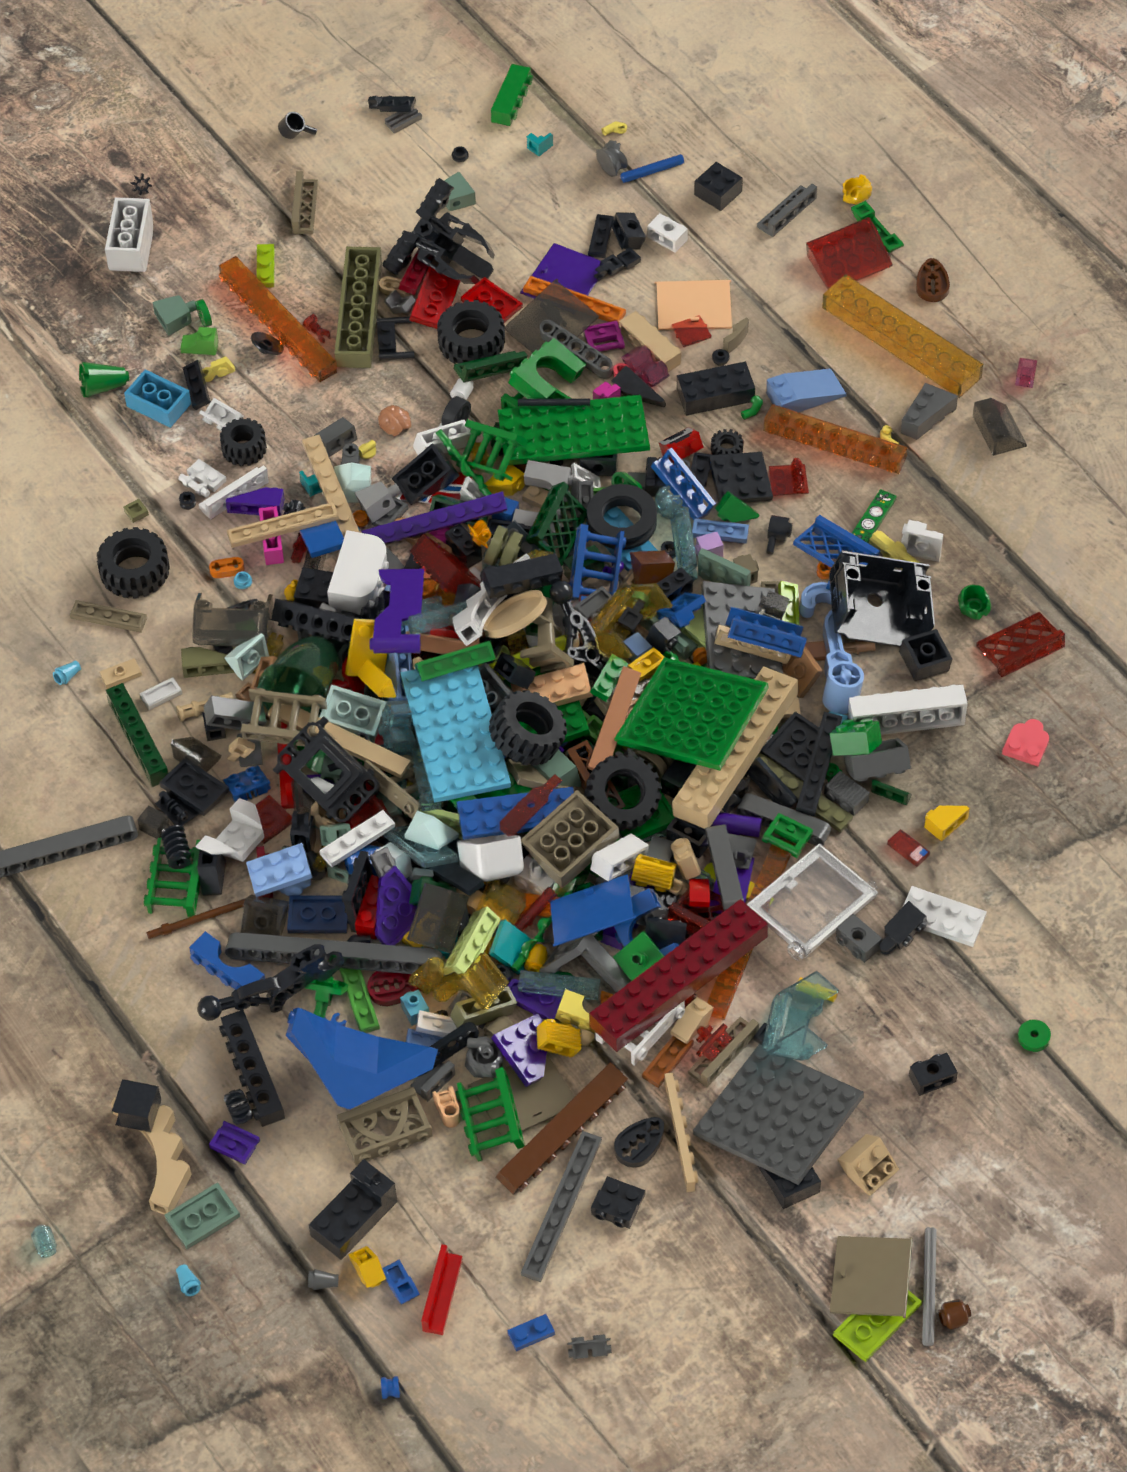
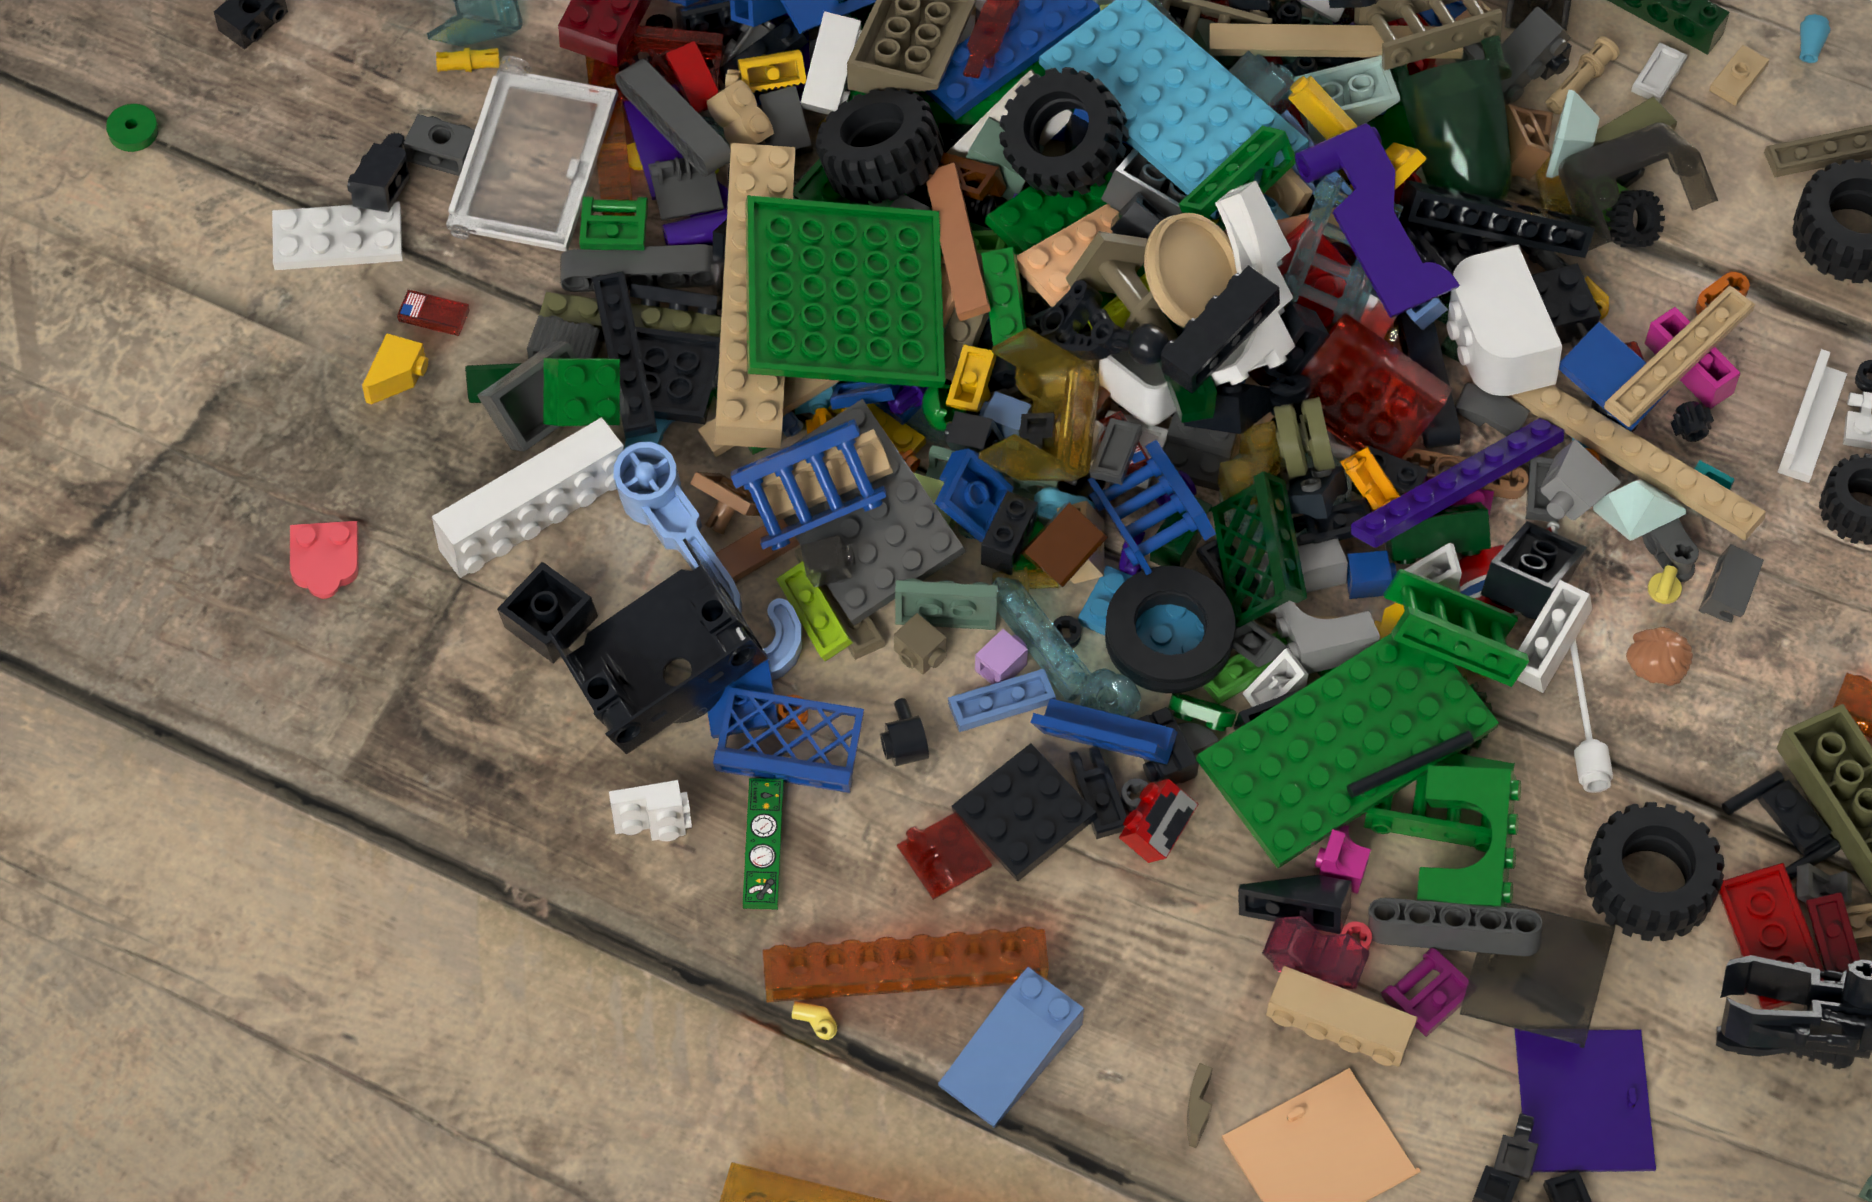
camera: 150 degrees right, 5 degrees up
(242, 580) = (1681, 285): medium azure plate -> none
(251, 501) = (1750, 417): dark purple slope -> none
(456, 410) = (1565, 698): black tyre -> none
(465, 469) = (1493, 601): green piece -> none
(489, 366) = (1566, 818): dark green fence -> none
(493, 295) = (1672, 982): red tile -> none
(605, 310) = (1529, 1050): orange tile -> none
(691, 332) = (1286, 1087): clear red piece -> none
(715, 388) = (1168, 969): black brick -> none
(720, 357) = (1194, 1058): black plate -> none
(726, 437) = (1078, 886): black tyre -> none
(734, 509) = (993, 740): green slope -> none
(755, 408) = (1080, 971): green arm -> none
(889, 548) = (700, 787): light yellow piece -> none
(927, 409) = (771, 1099): dark grey wedge -> none
(974, 601) = (514, 748): green hair -> none
(997, 426) = (628, 1131): clear smoke slope -> none
(1029, 652) = (381, 704): clear red fence -> none

